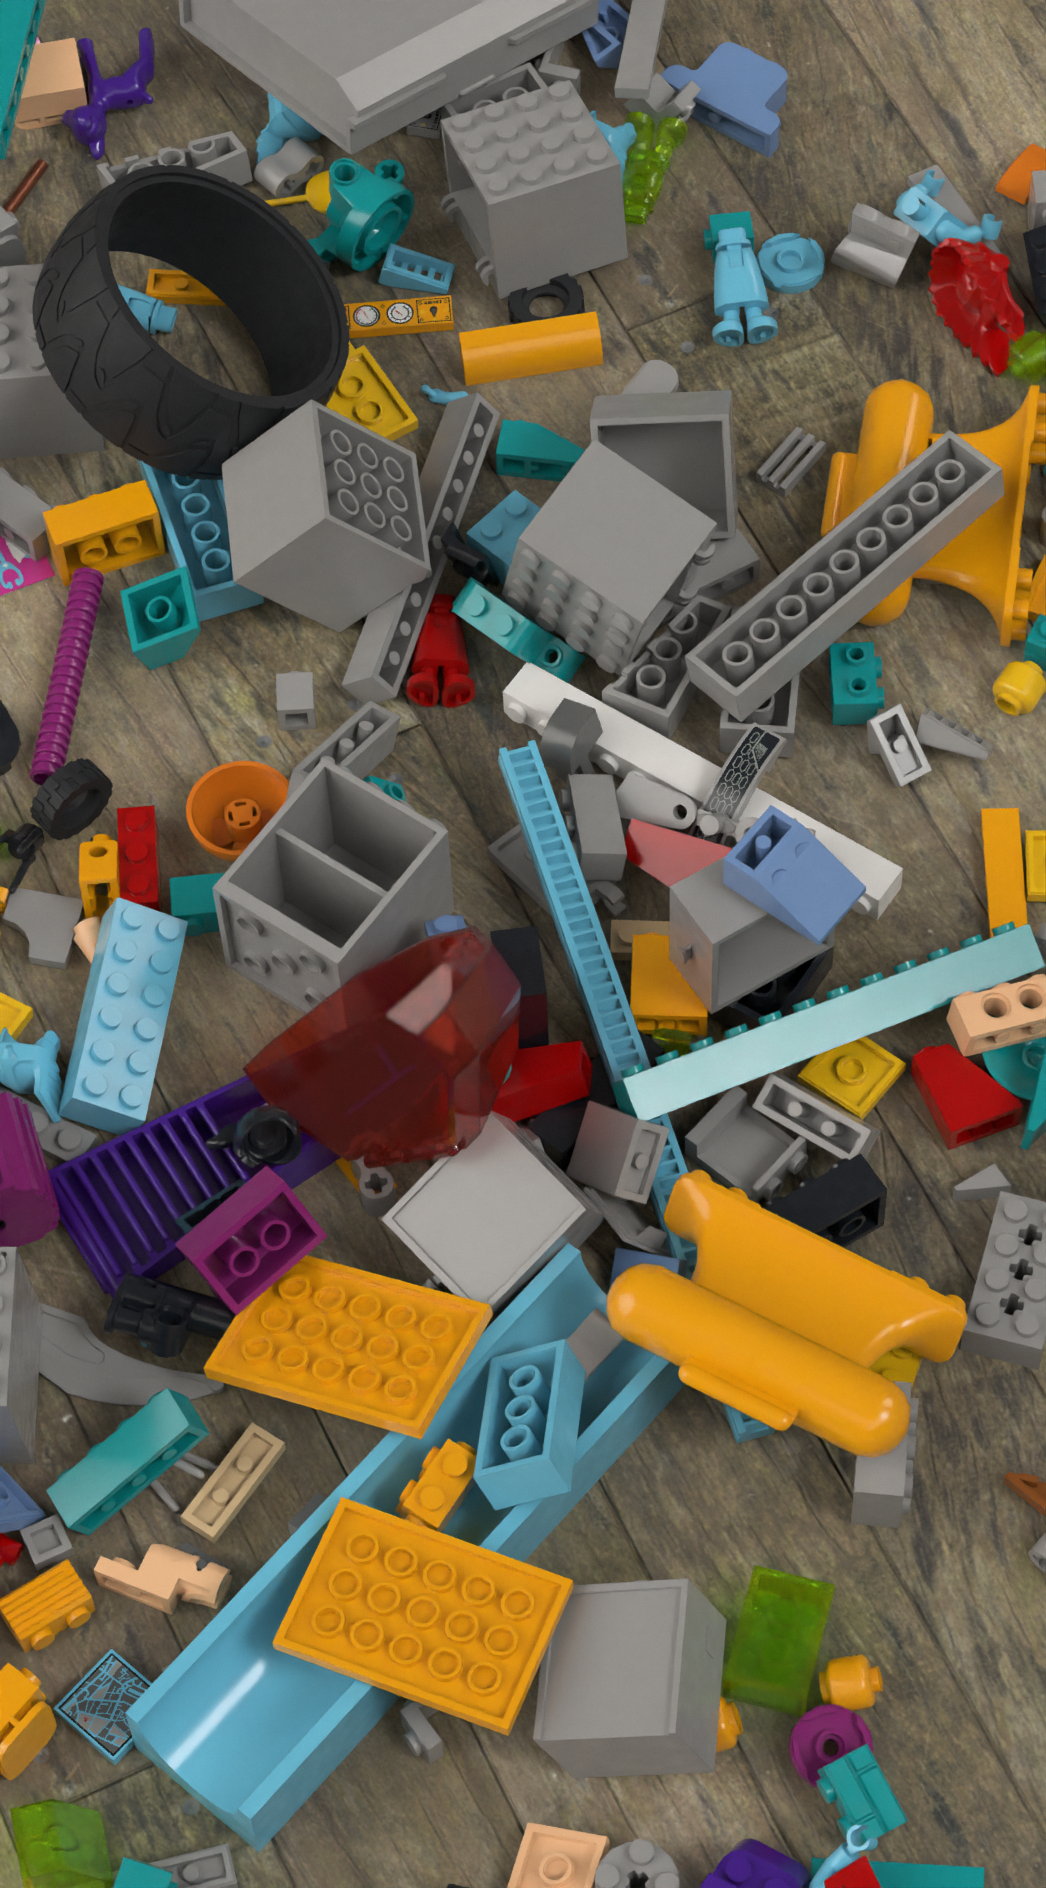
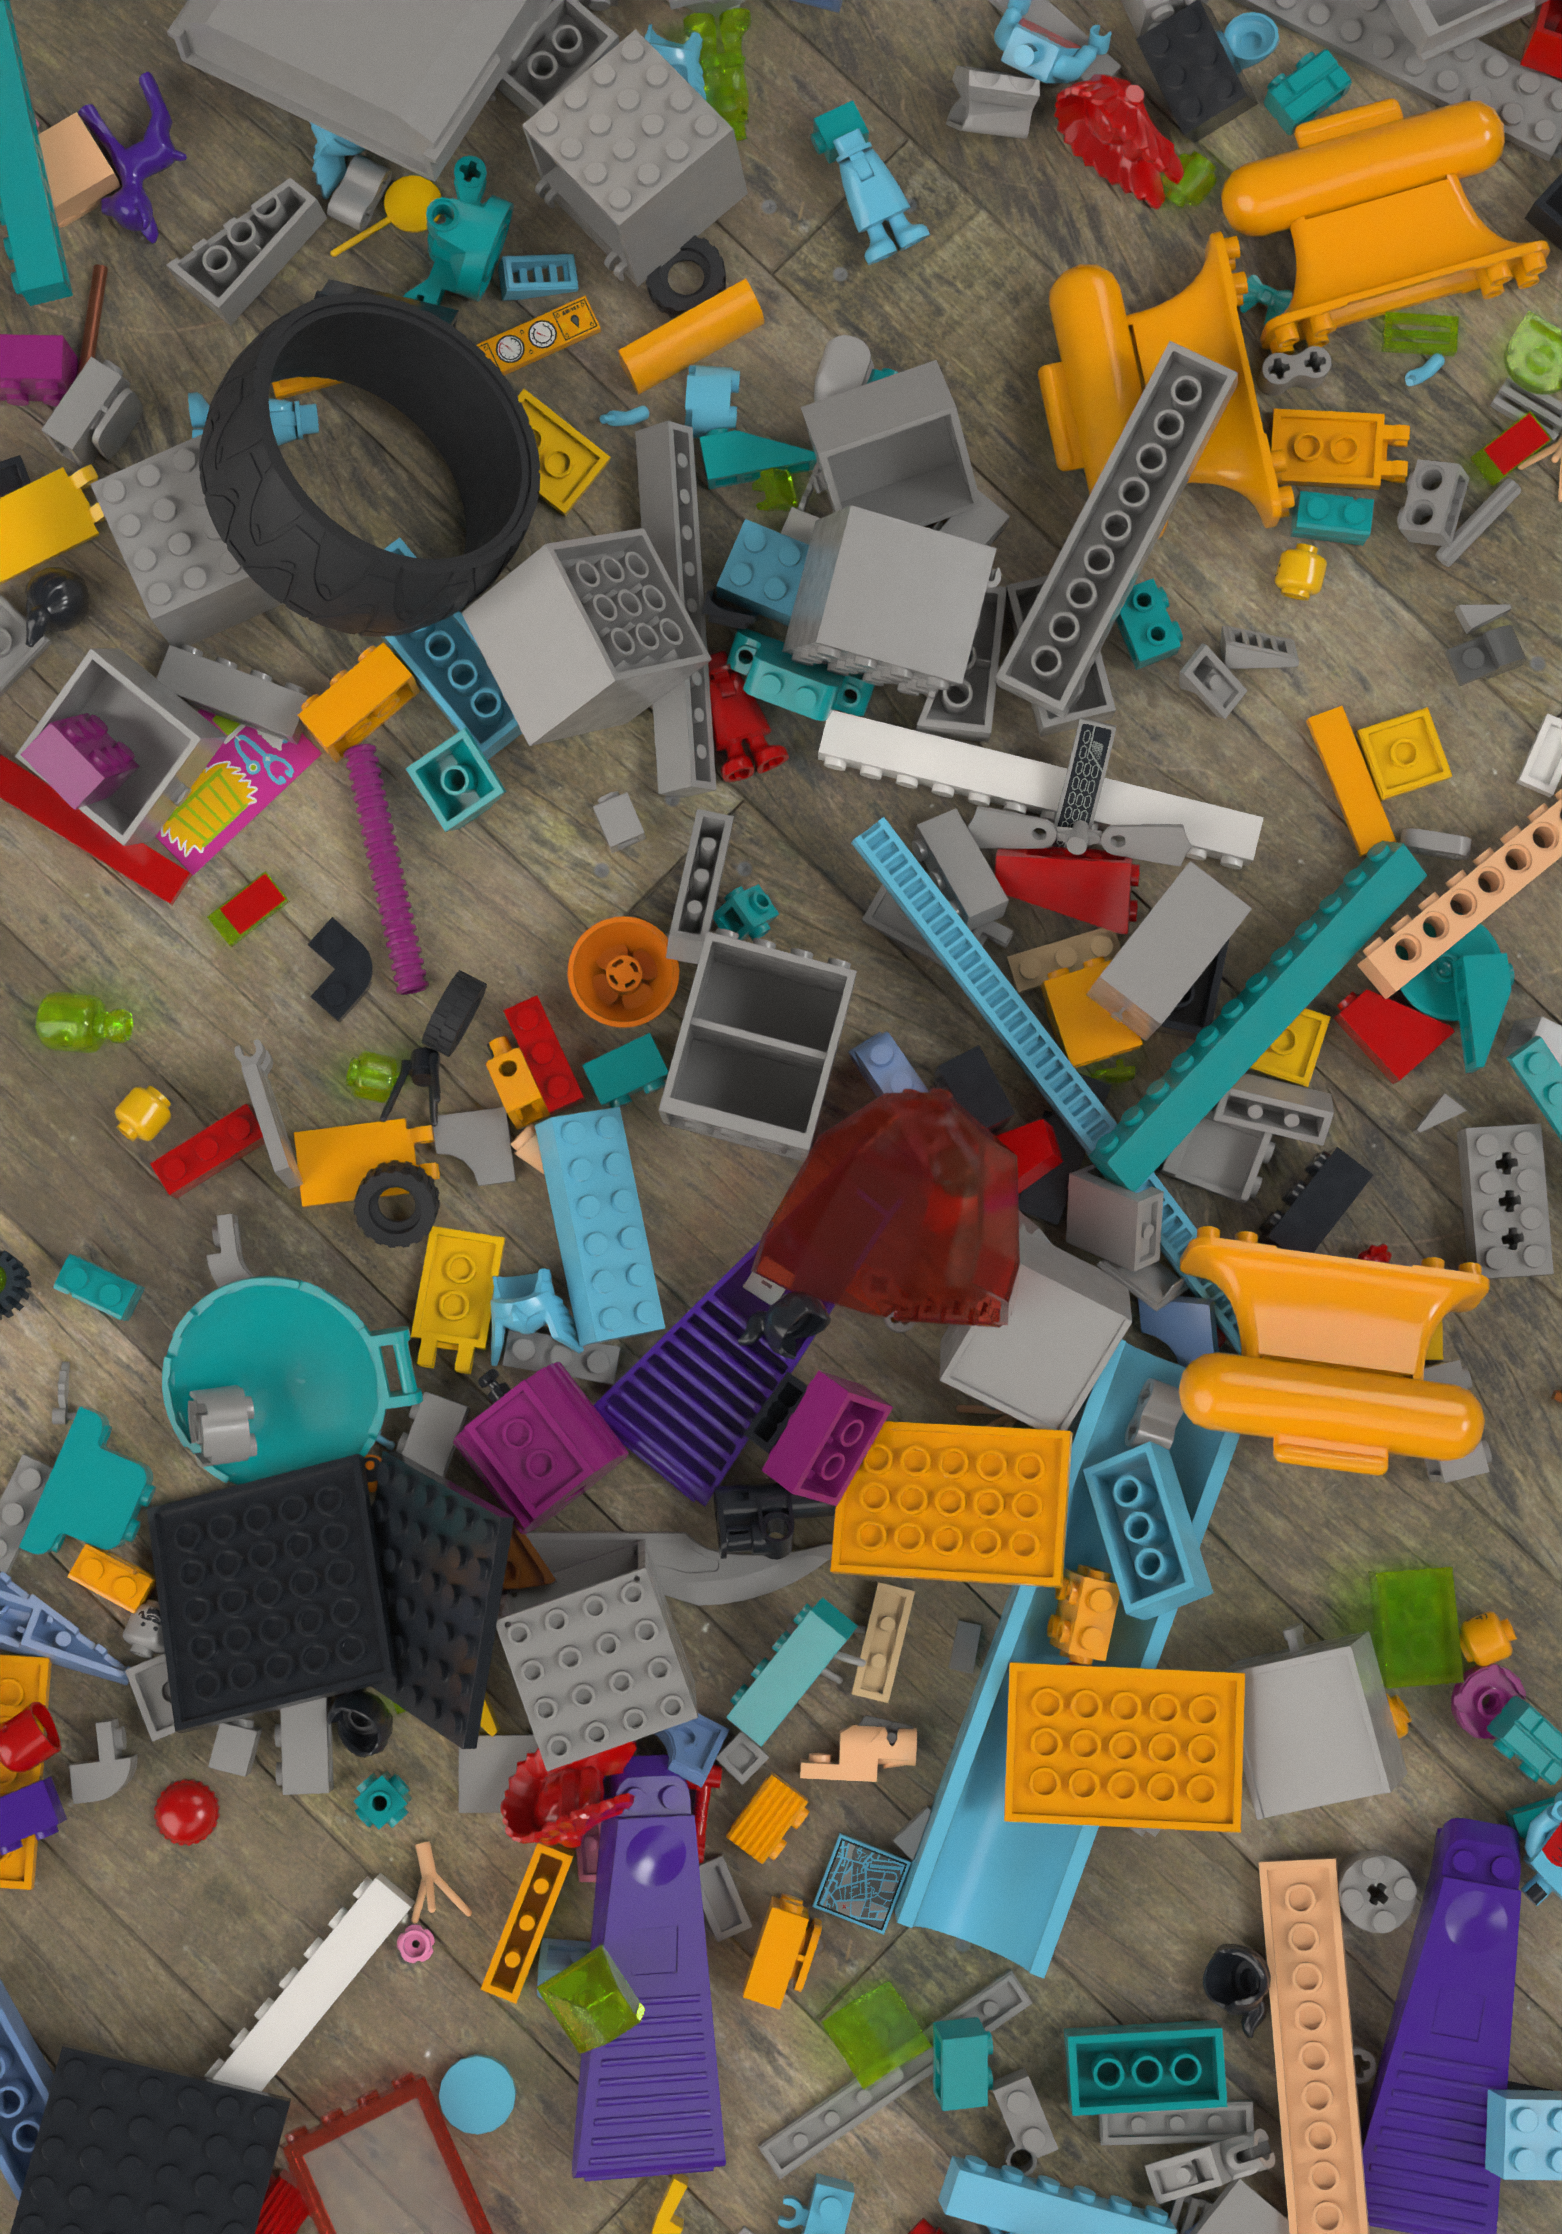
camera: 25 degrees left, 25 degrees up
(528, 398) = (710, 398): none -> medium azure cylinder
(549, 480) = (778, 490): none -> clear neon green tile
(569, 739) = (907, 790): dark grey brick -> none
(791, 263) = (908, 140): medium azure tile -> none
(791, 875) = (1218, 937): medium blue slope -> none
(797, 436) = (1000, 352): light grey tile -> none

